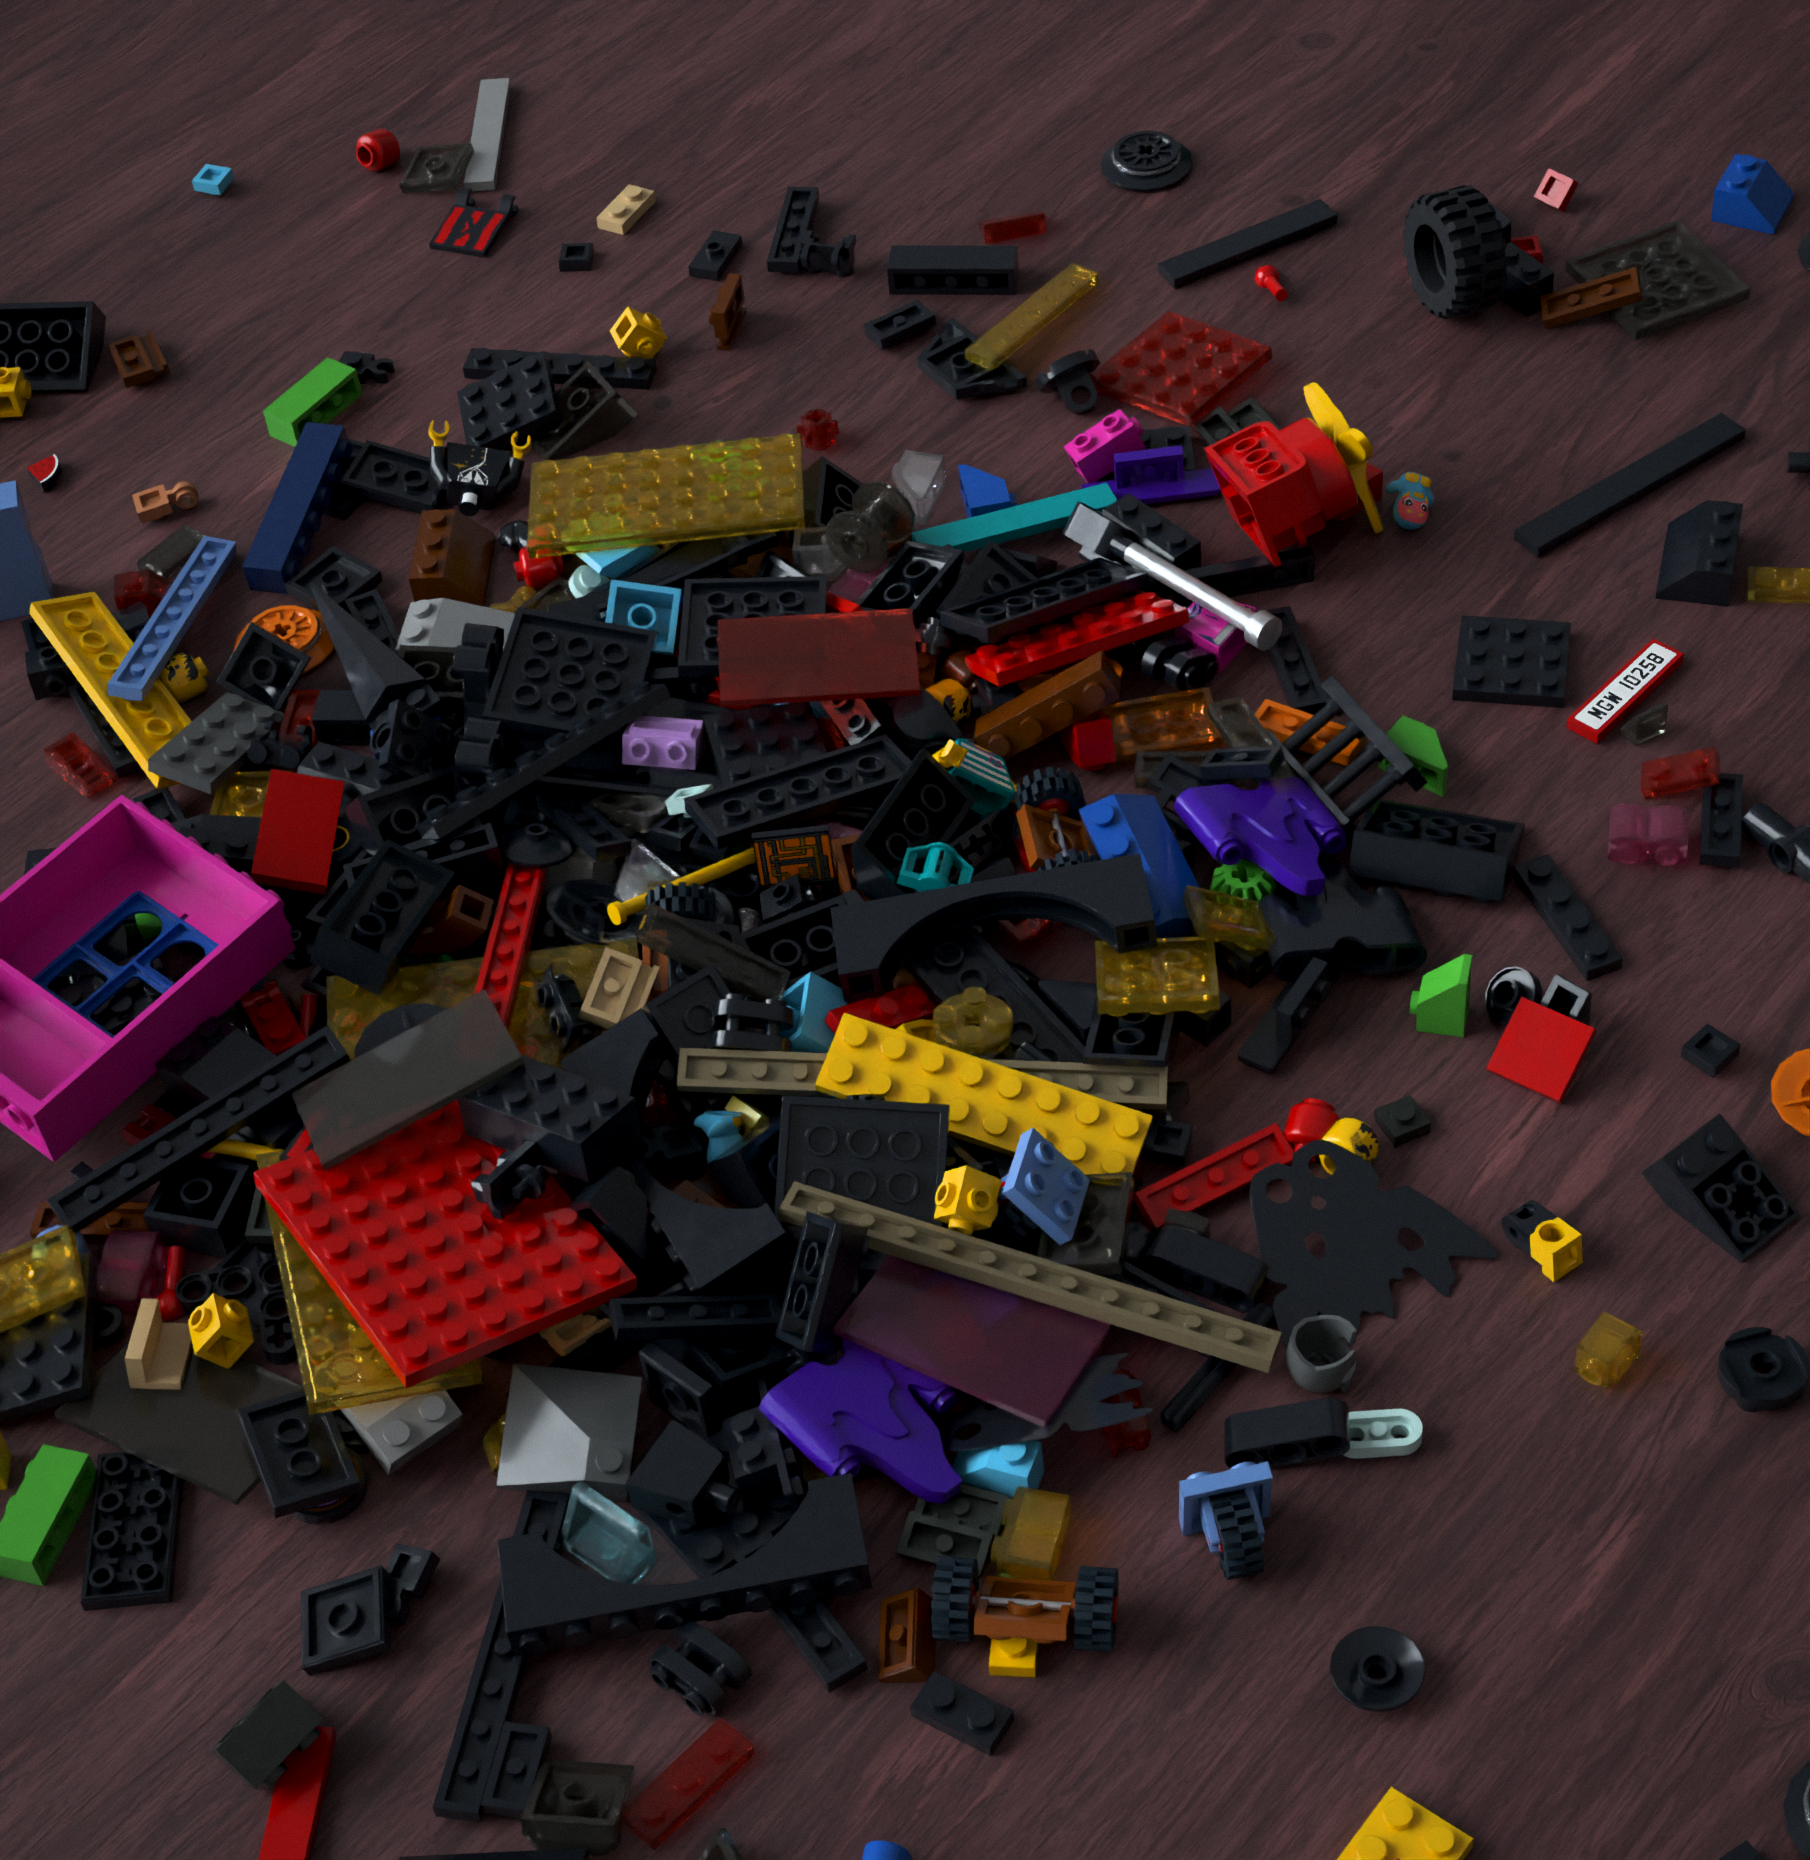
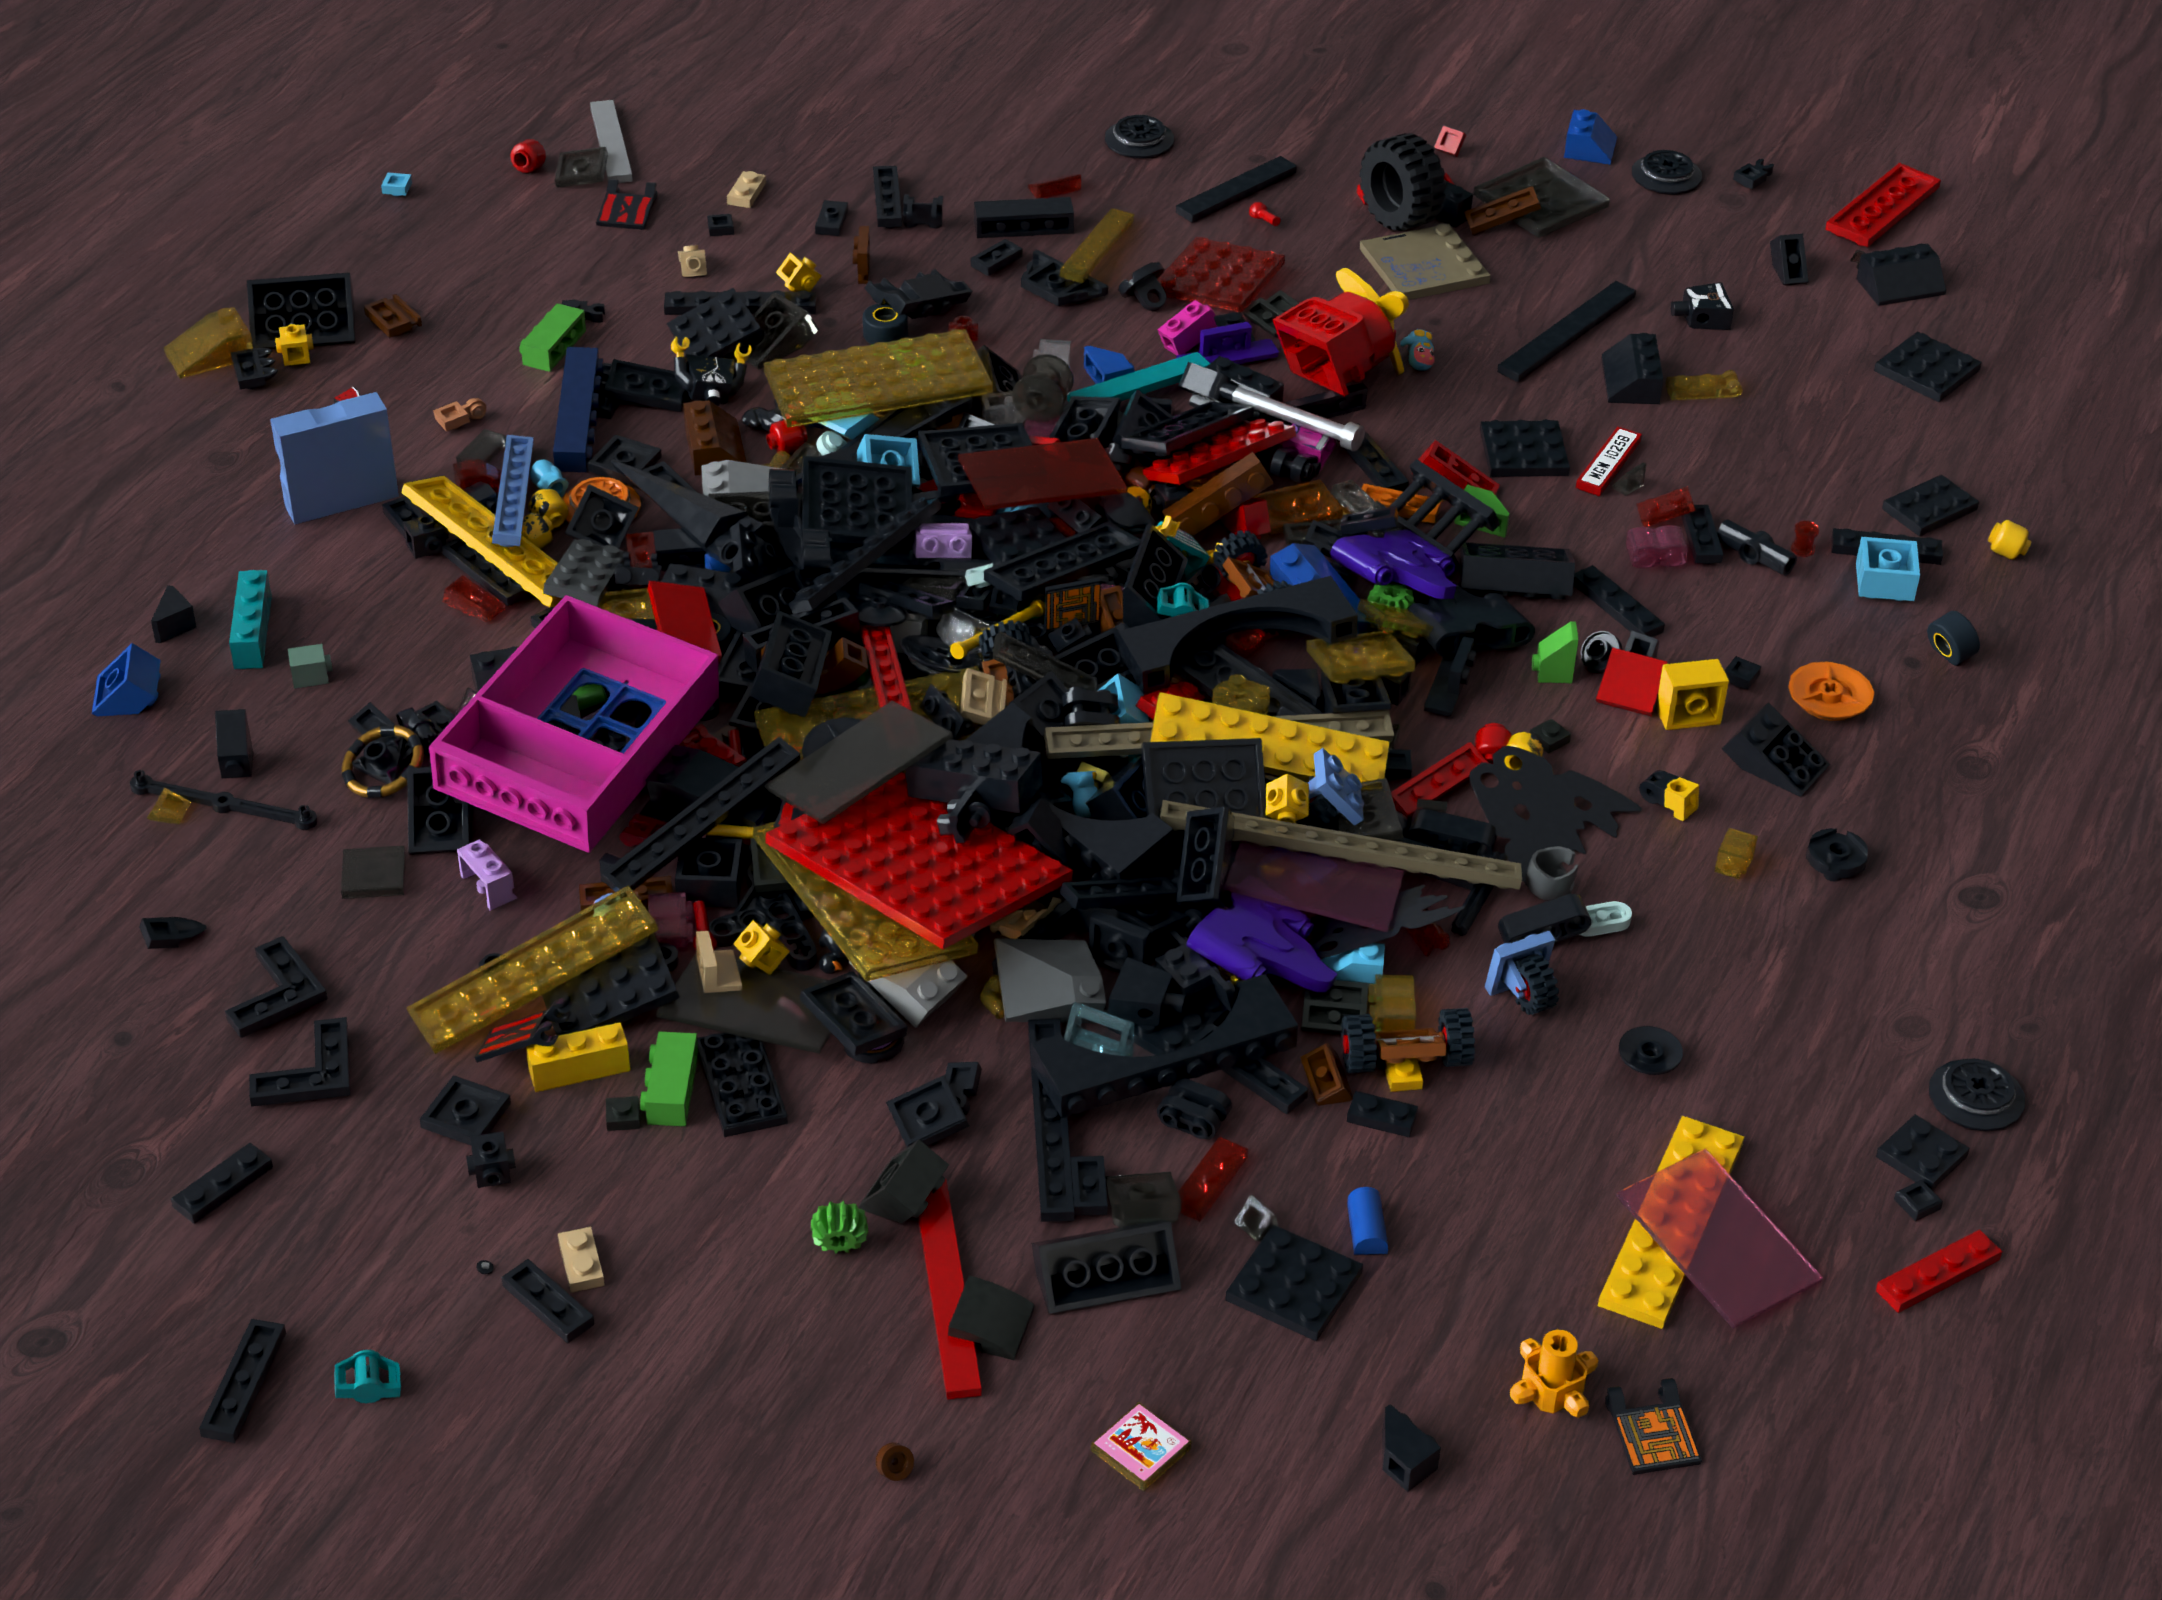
camera: 20 degrees left, 5 degrees down
(157, 1789) = (839, 1227): none -> bright green gear
(213, 643) = (550, 504): none -> yellow head
(229, 603) = (548, 476): none -> medium azure animal
(520, 306) = (692, 261): none -> tan bracket
(723, 412) = (884, 324): none -> black wheel
(777, 376) = (920, 296): none -> black bracket
(1390, 692) = (1455, 468): none -> red slope
(1465, 367) = (1425, 262): none -> dark tan plate
(1618, 1082) = (1692, 694): none -> yellow brick

